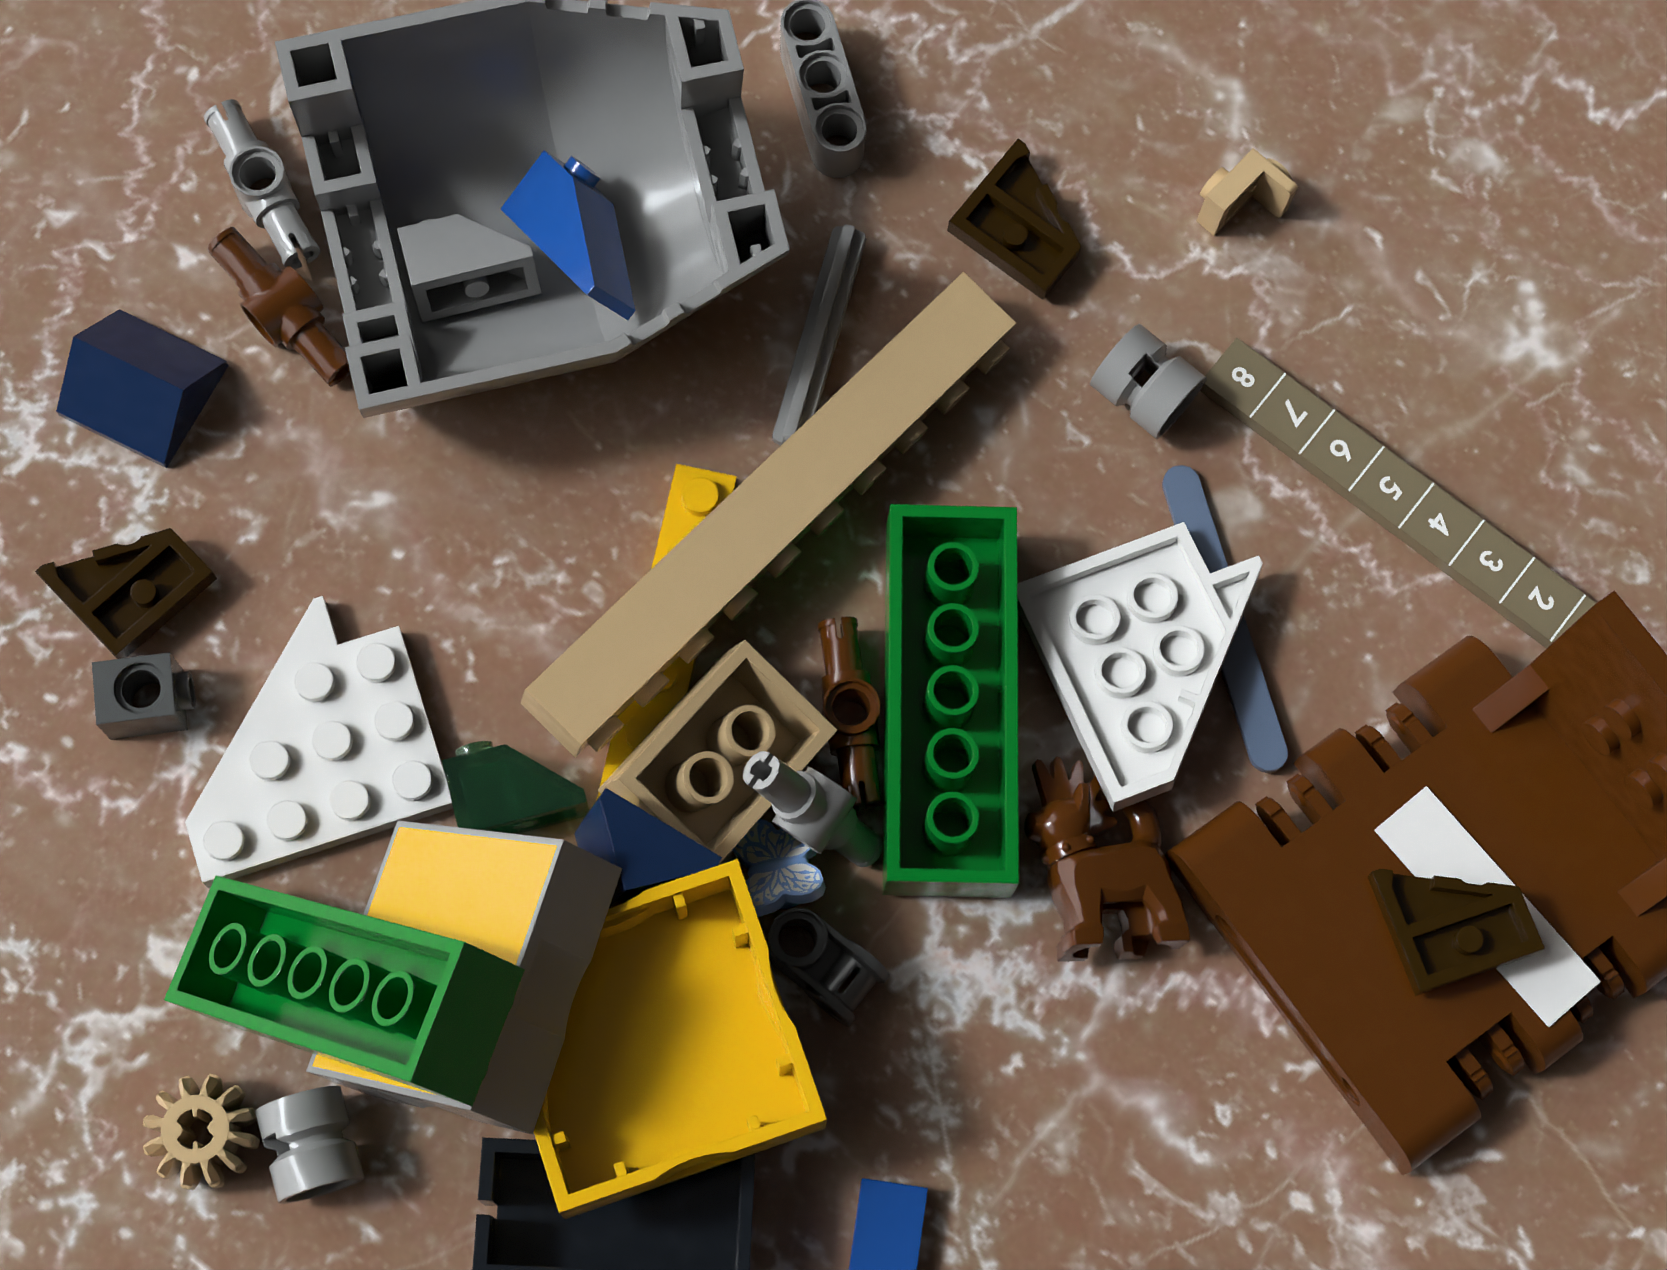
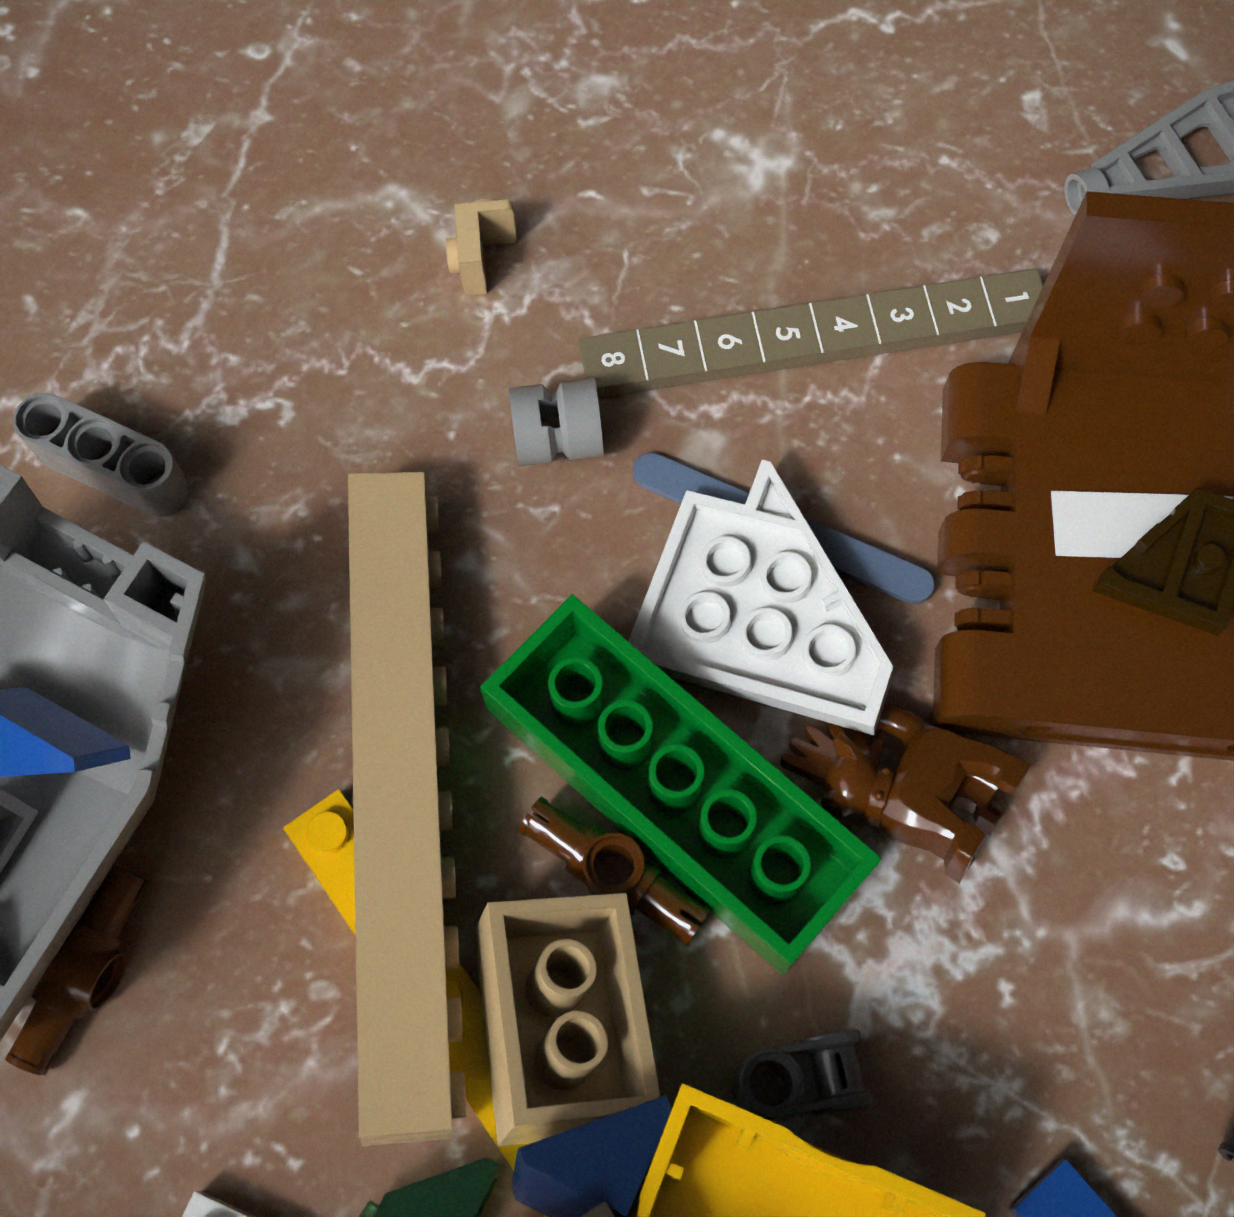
camera: 40 degrees left, 5 degrees down
(466, 423) = (80, 974): none -> reddish brown pin
(778, 869) = (695, 1042): light blue animal -> none
(813, 809) = (676, 974): light grey pin -> none
(820, 331) = (289, 626): light grey axle -> none
(1017, 224) = (347, 411): dark brown wing -> none

